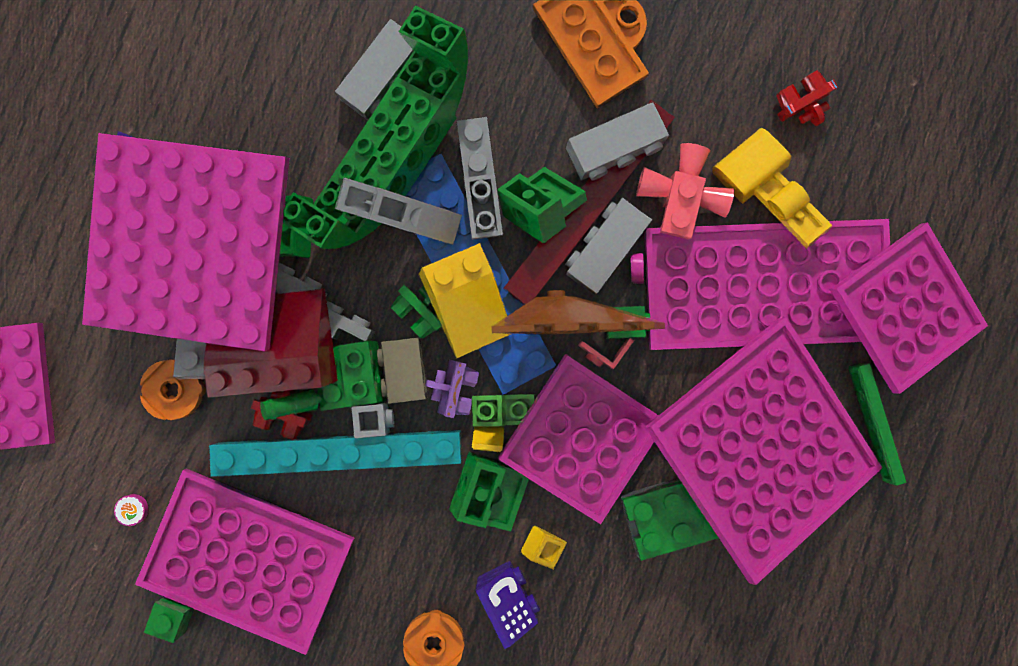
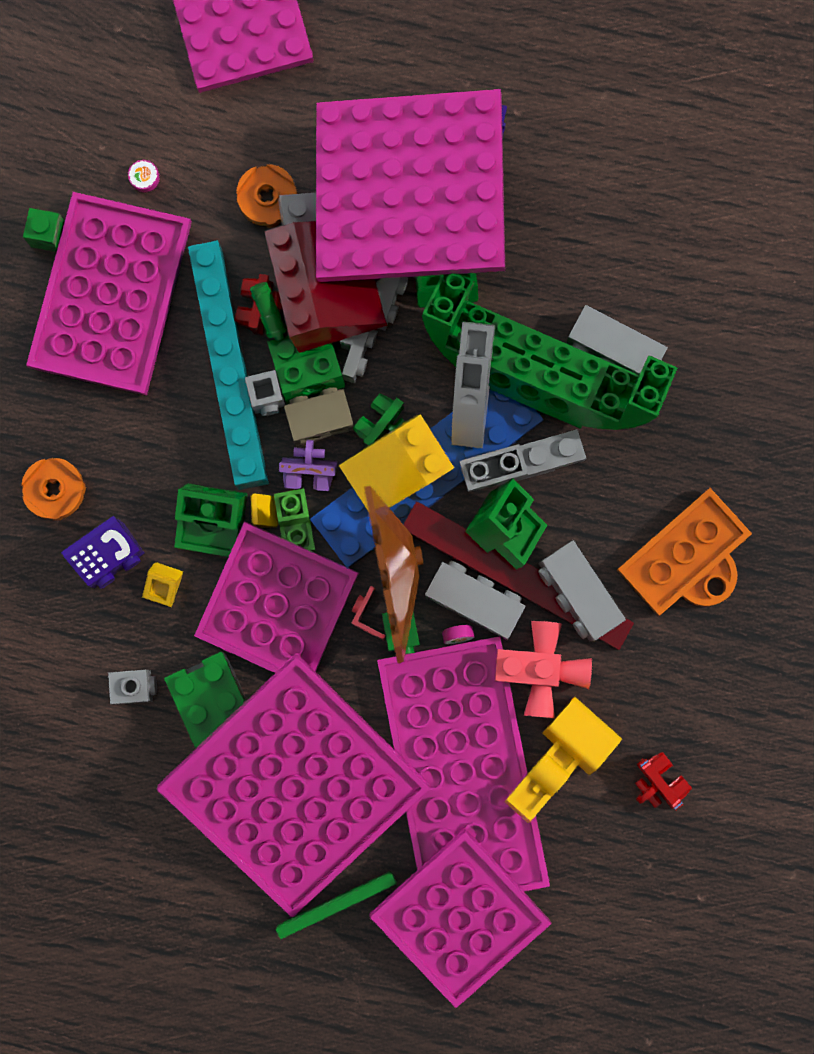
camera: 90 degrees right, 5 degrees down
(641, 592) = (132, 687): none -> light grey brick

